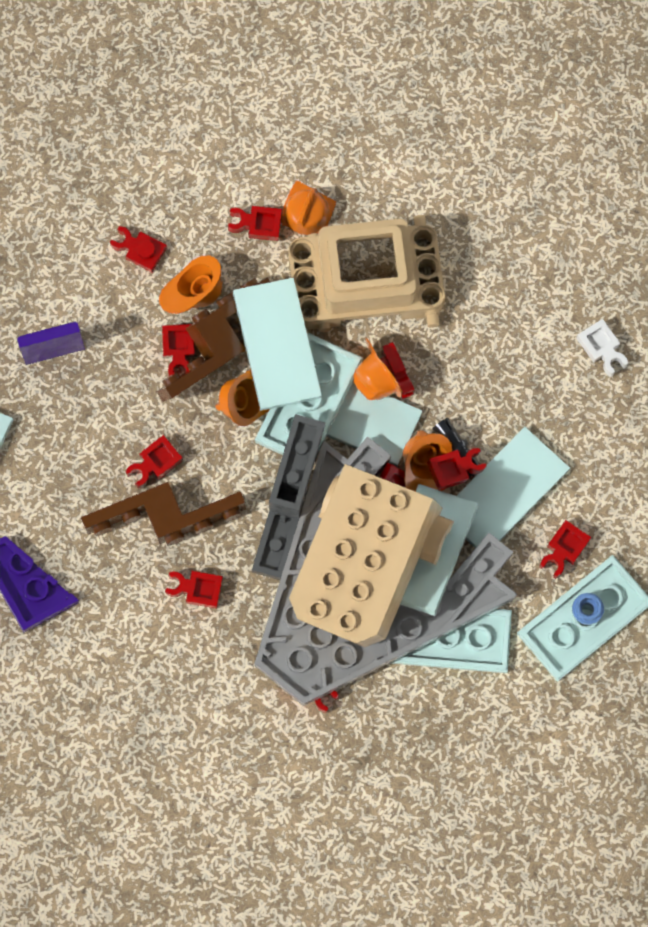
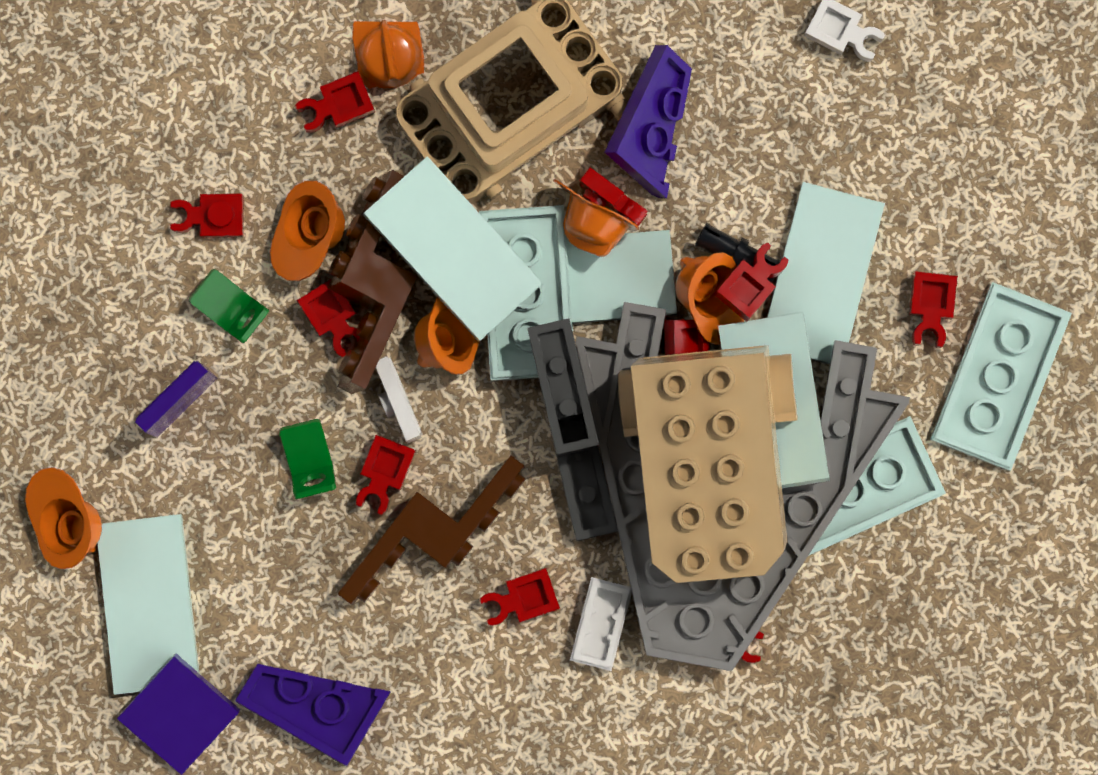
camera: 25 degrees left, 10 degrees up
(112, 425) = (308, 457): none -> green bracket
(117, 305) = (228, 305): none -> green bracket
(188, 421) = (396, 401): none -> white plate
(237, 632) = (601, 624): none -> white plate
(445, 337) = (647, 125): none -> dark purple wing
(592, 600) = (1010, 356): medium blue plate -> none

